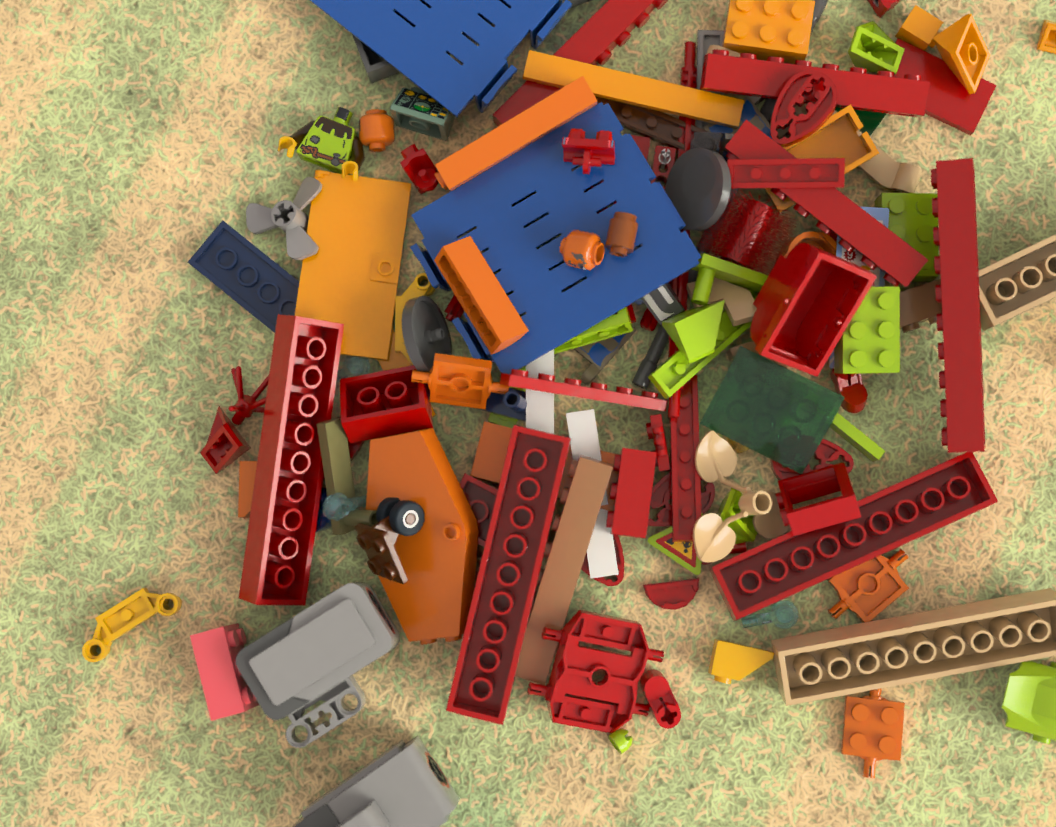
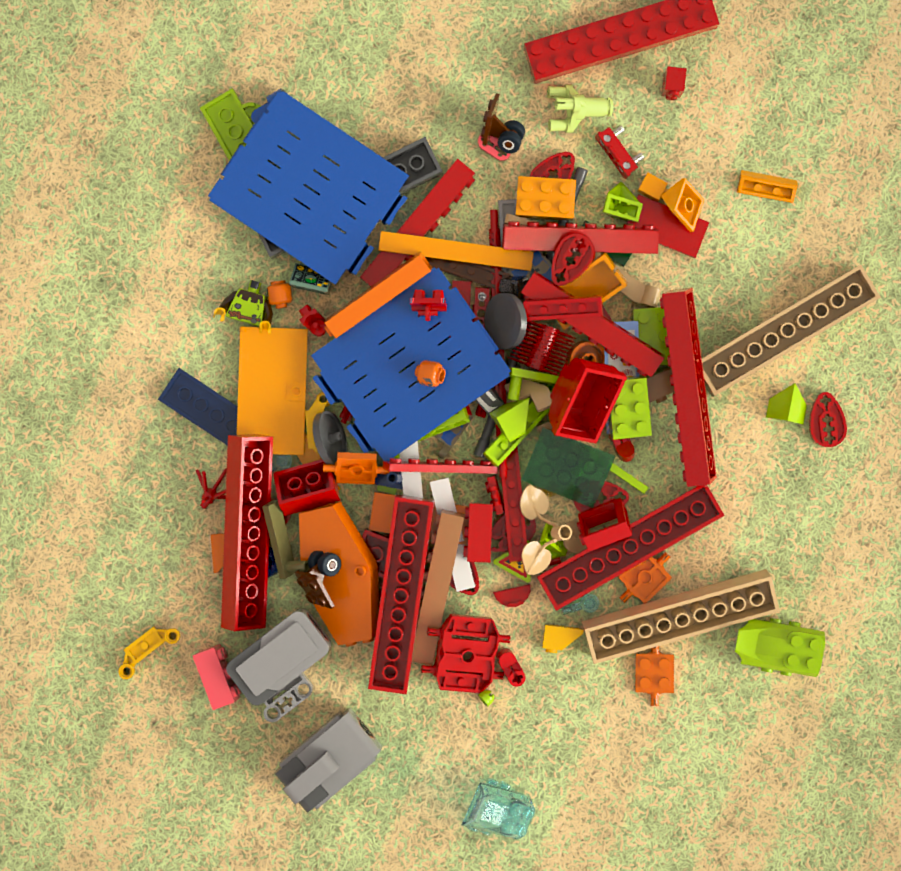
camera: 10 degrees left, 5 degrees up
(224, 443) = (196, 522): red slope -> none
(262, 219) = (235, 380): light grey piece -> none
(338, 505) = (283, 560): clear light blue plate -> none
(480, 294) = (364, 408): orange brick -> none
(621, 234) = (455, 360): dark orange brick -> none

